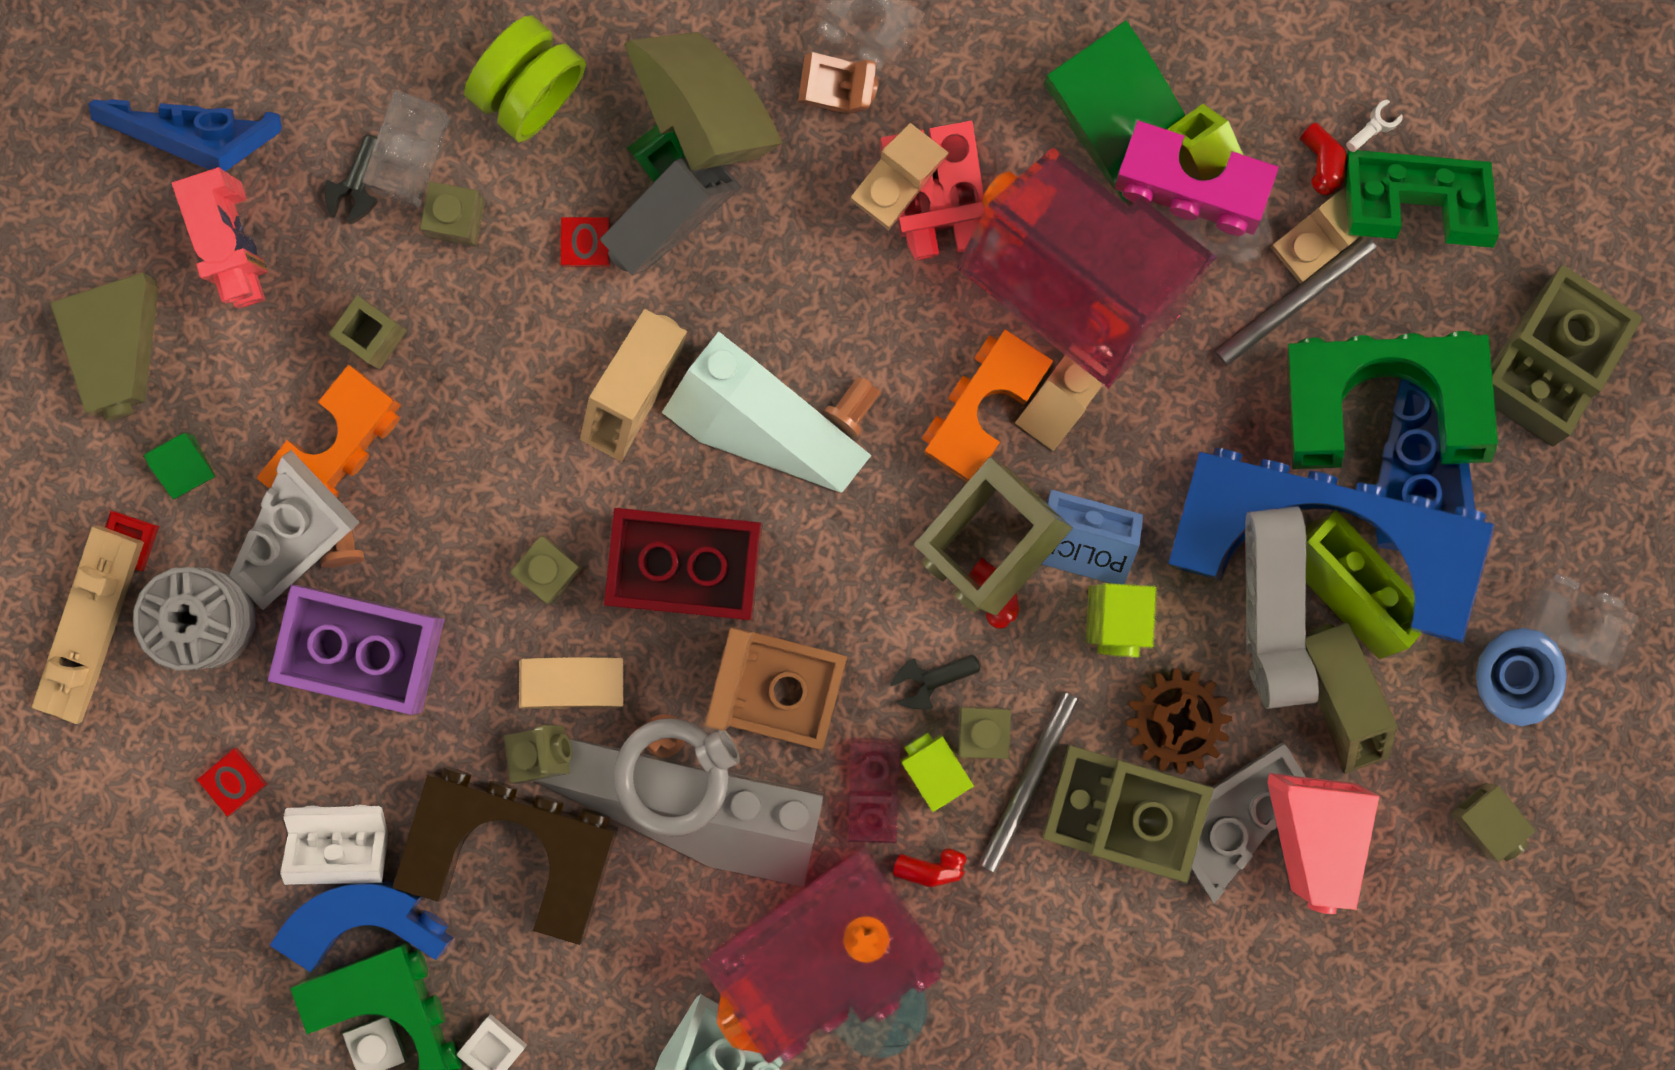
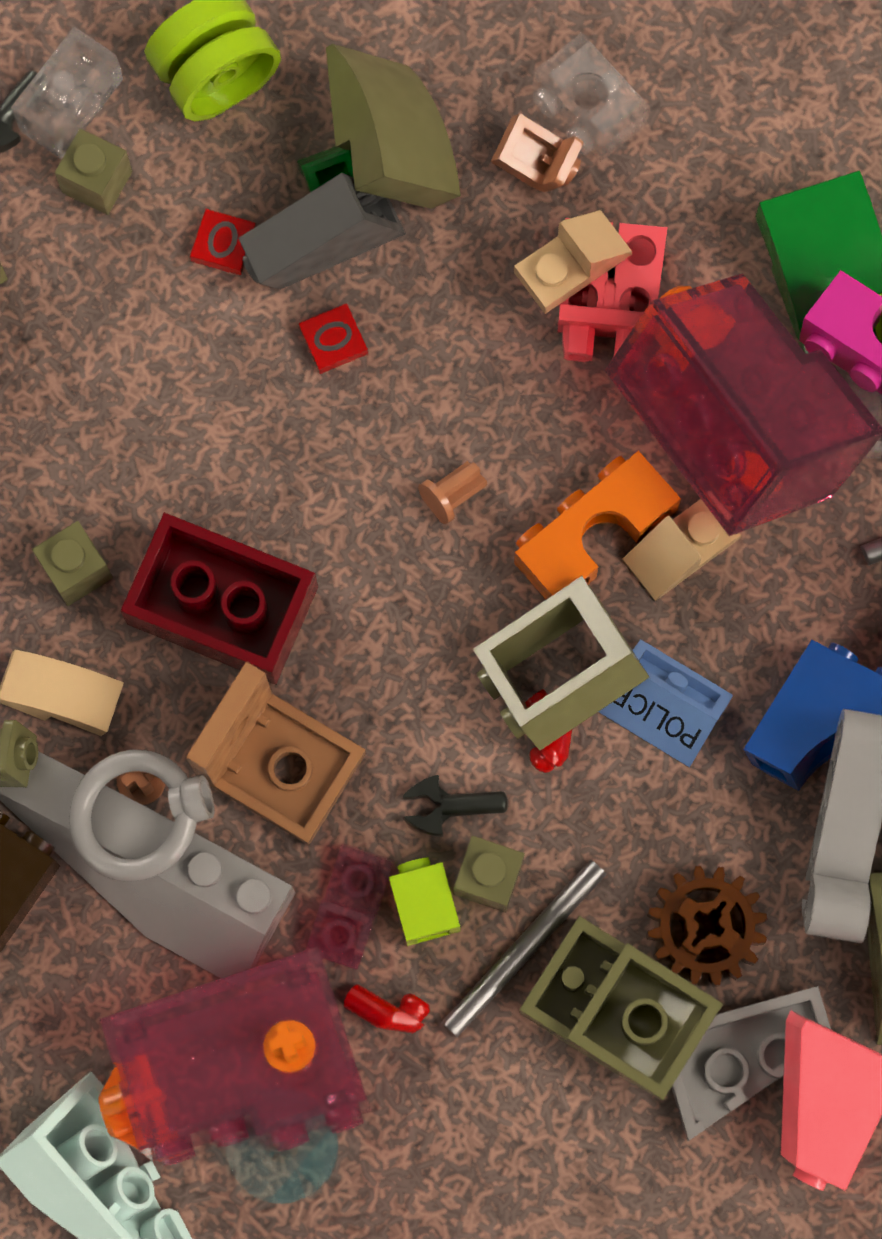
camera: 20 degrees right, 10 degrees down
(632, 384) = (223, 397): tan slope -> none
(708, 301) = (333, 338): none -> red tile
(752, 414) = (341, 464): light aqua wedge -> none
(1121, 618) = (672, 784): lime brick -> none

